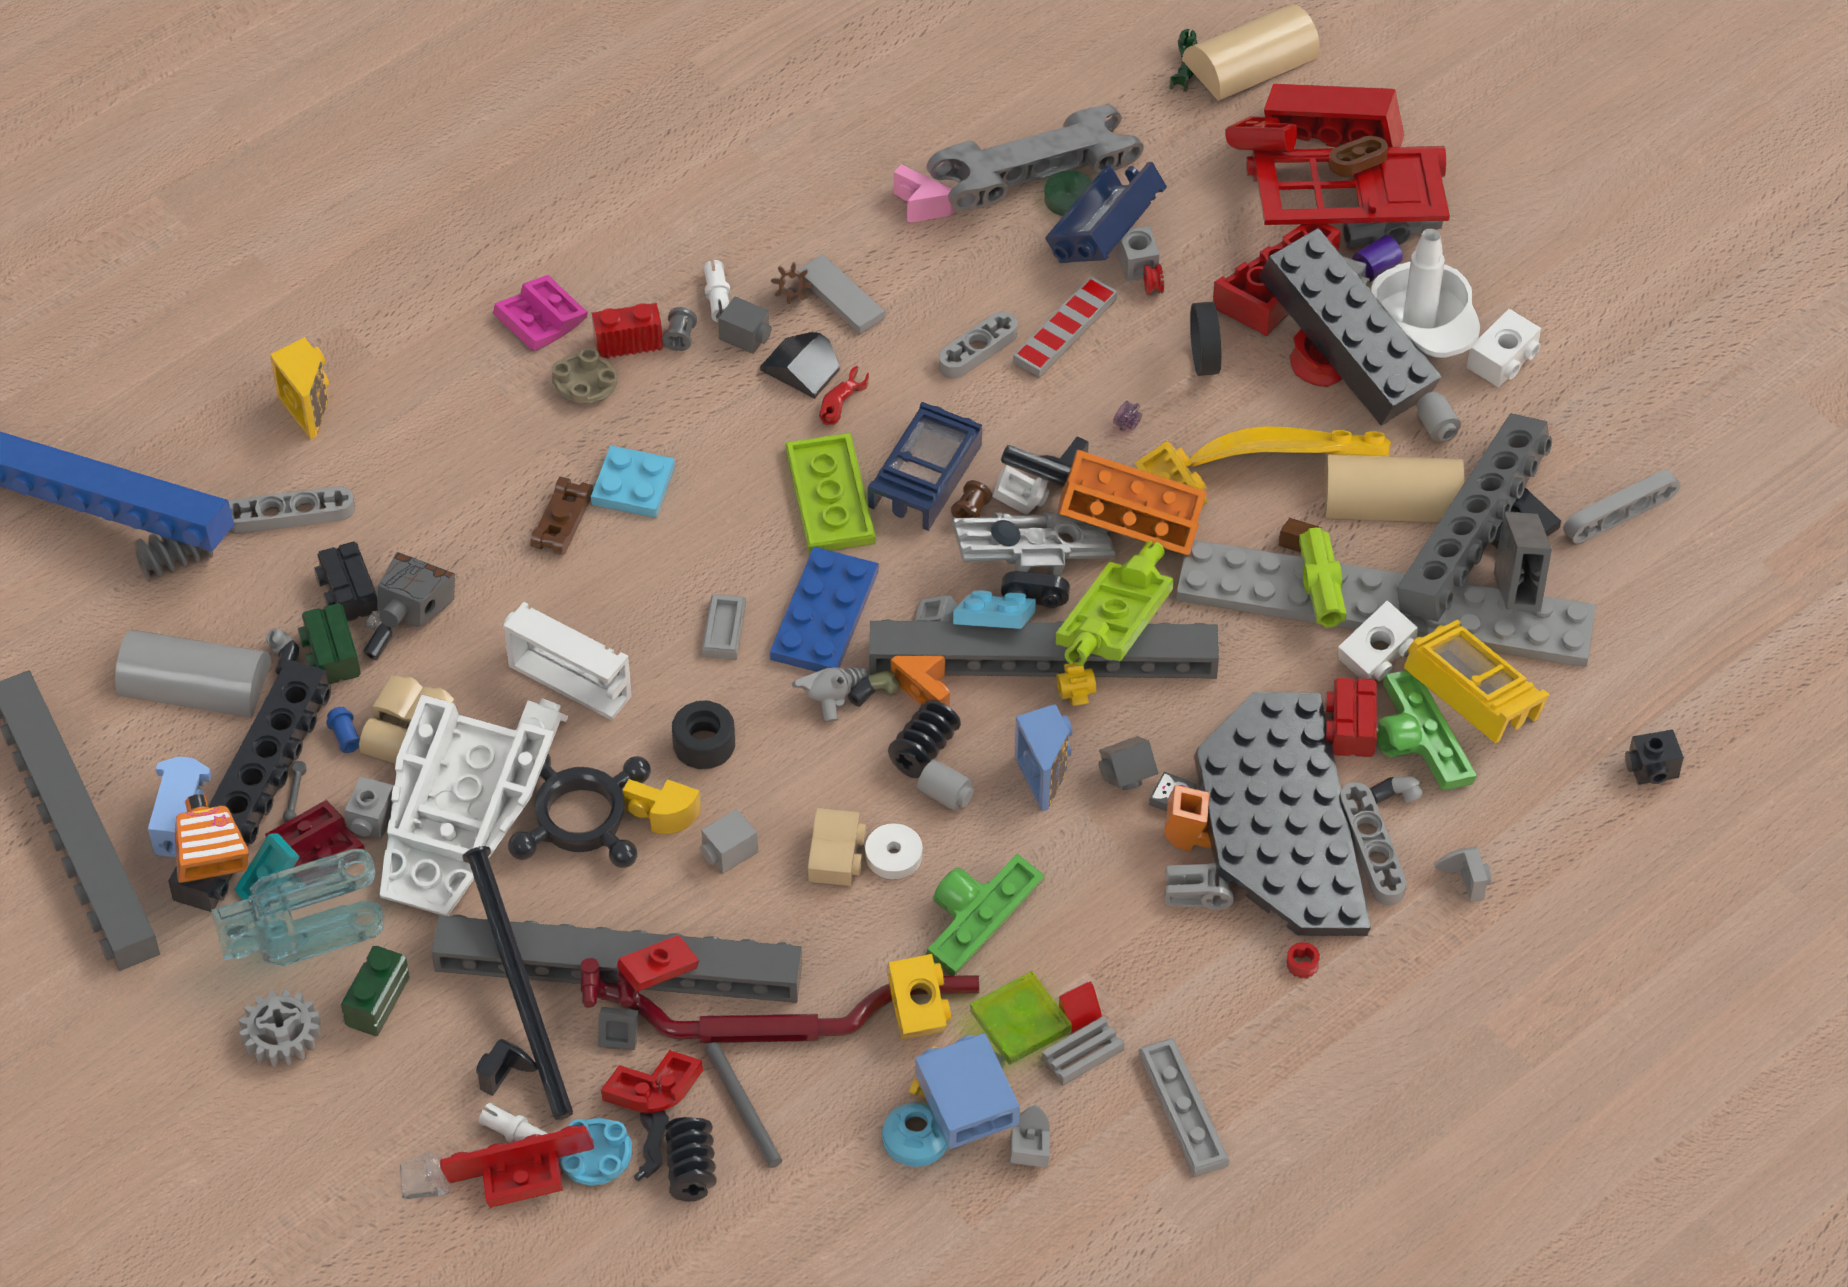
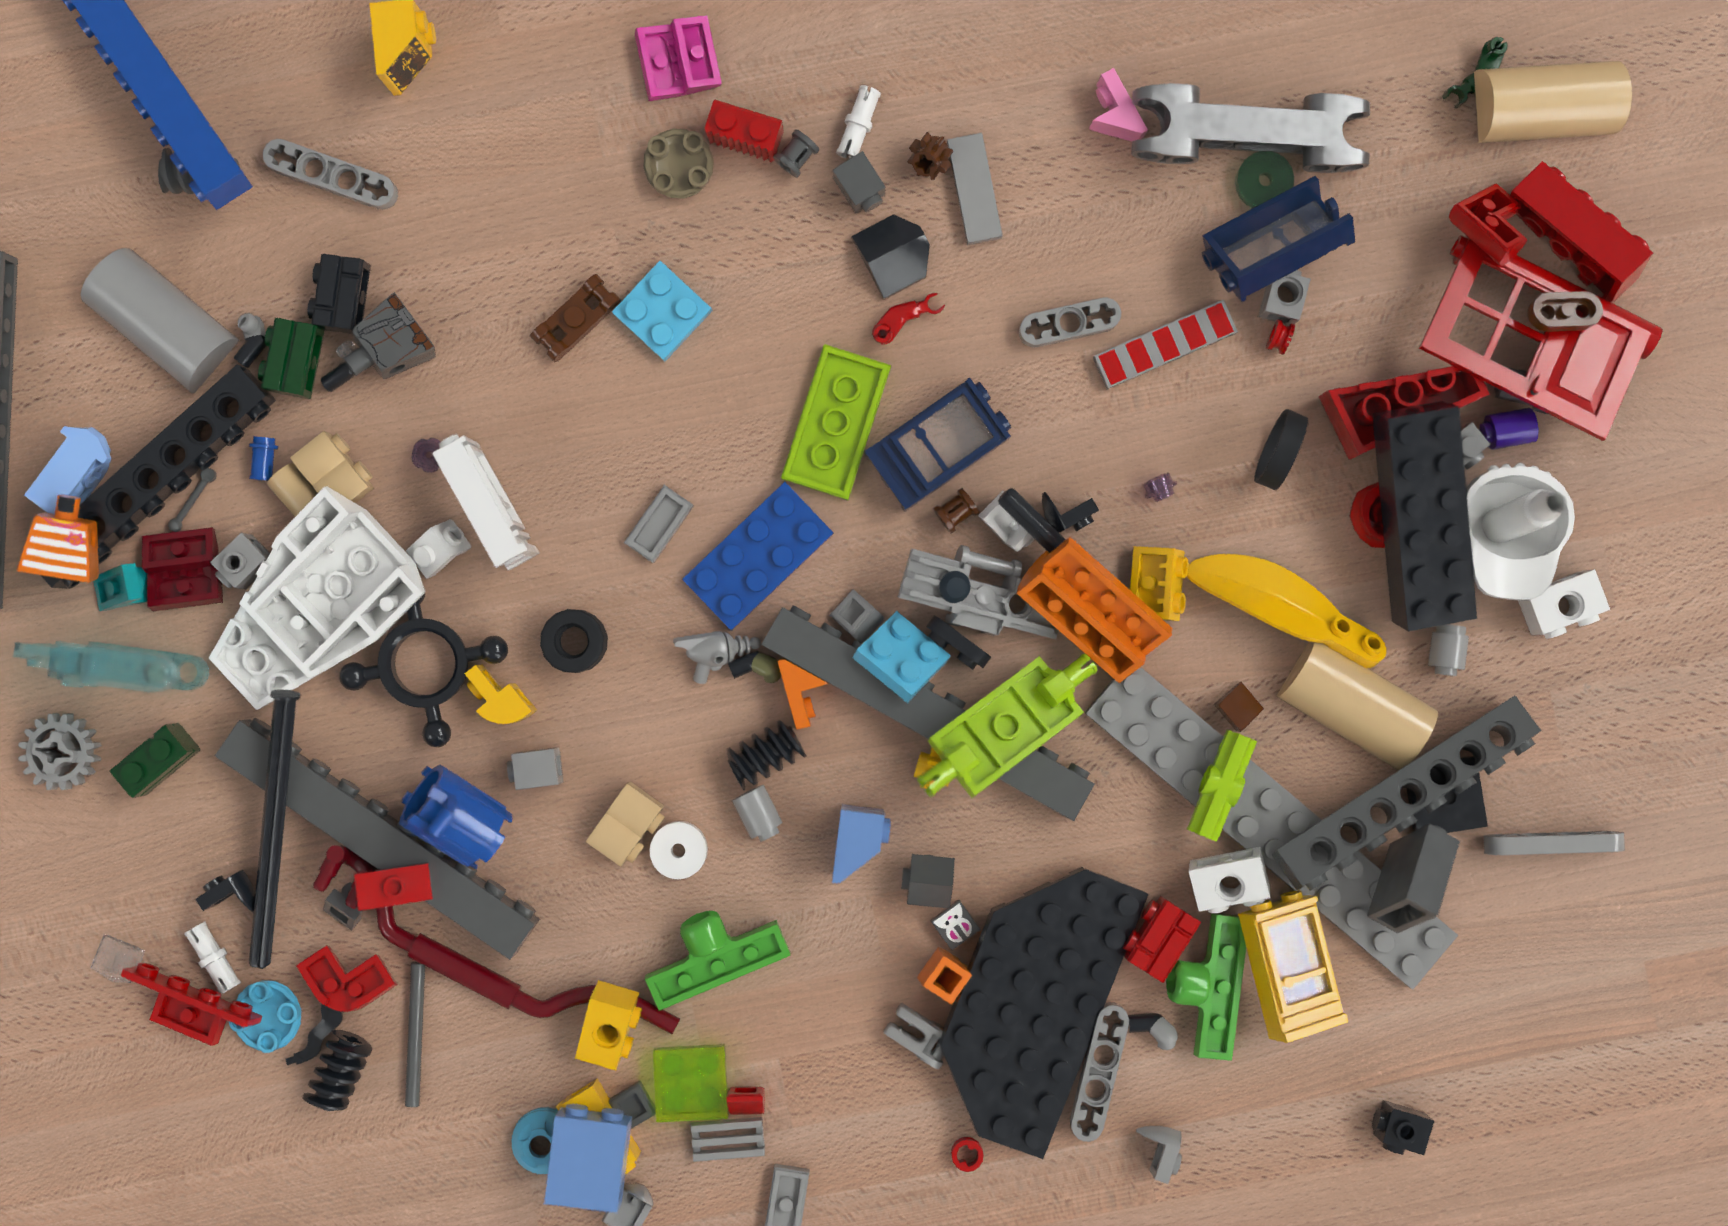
camera: 30 degrees right, 35 degrees up
(489, 656) = (419, 454): none -> plate
(680, 889) = (454, 816): none -> blue container

